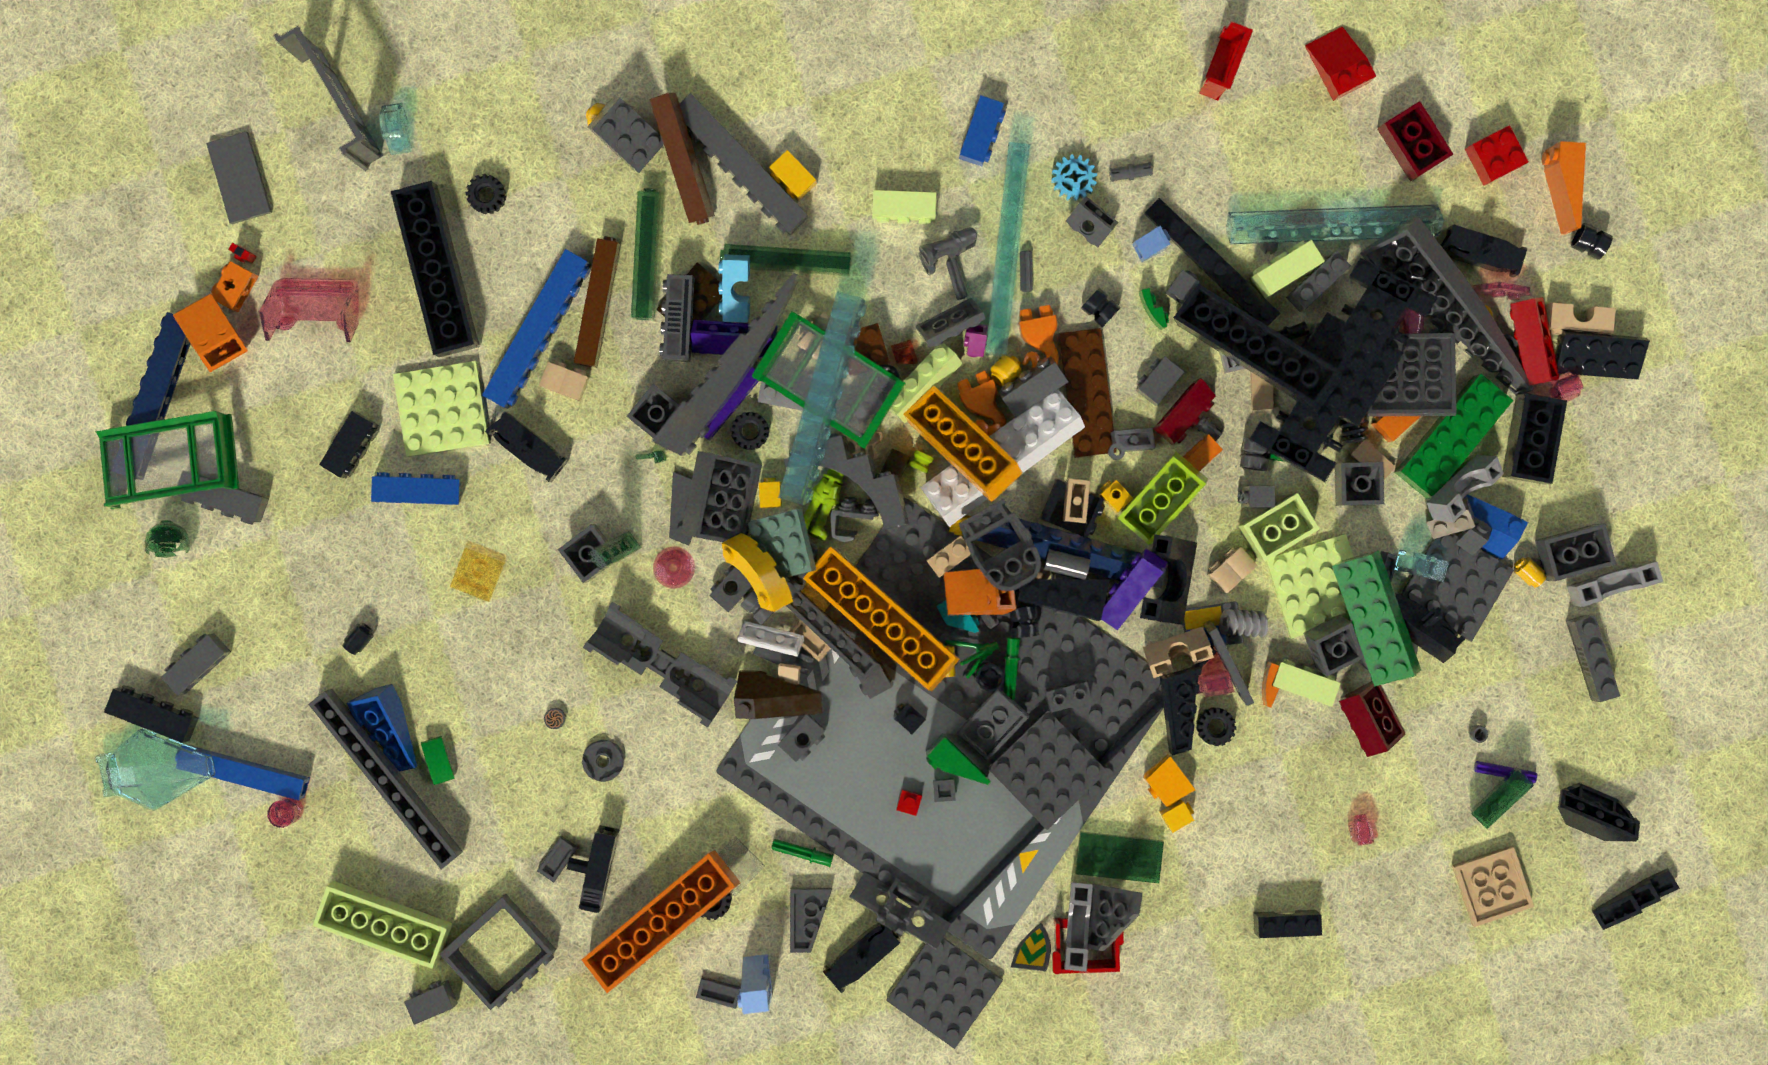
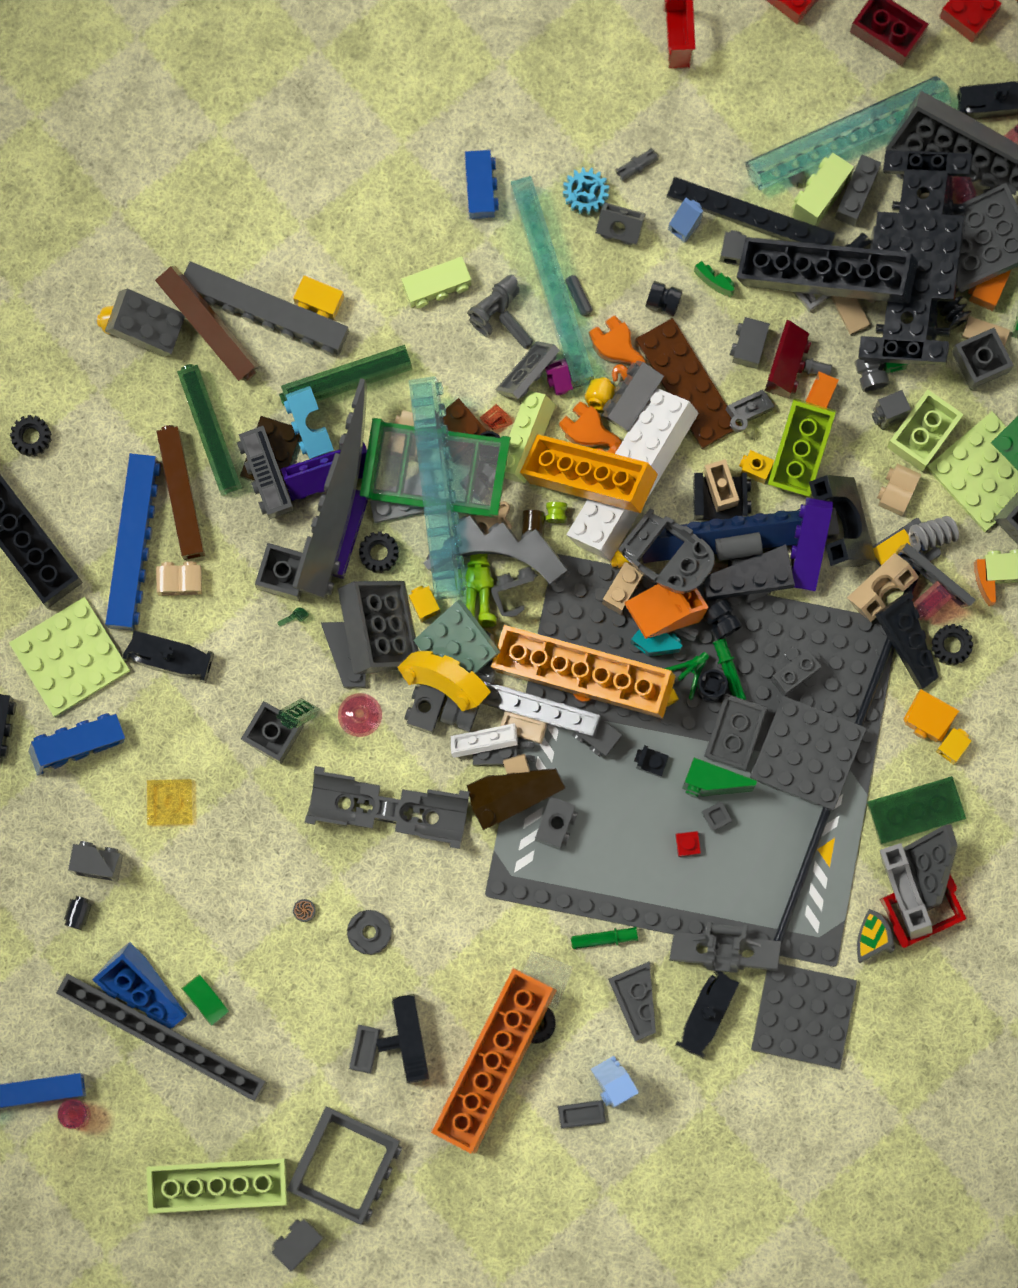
camera: 20 degrees left, 10 degrees down
(389, 603) = (95, 863): none -> dark grey slope

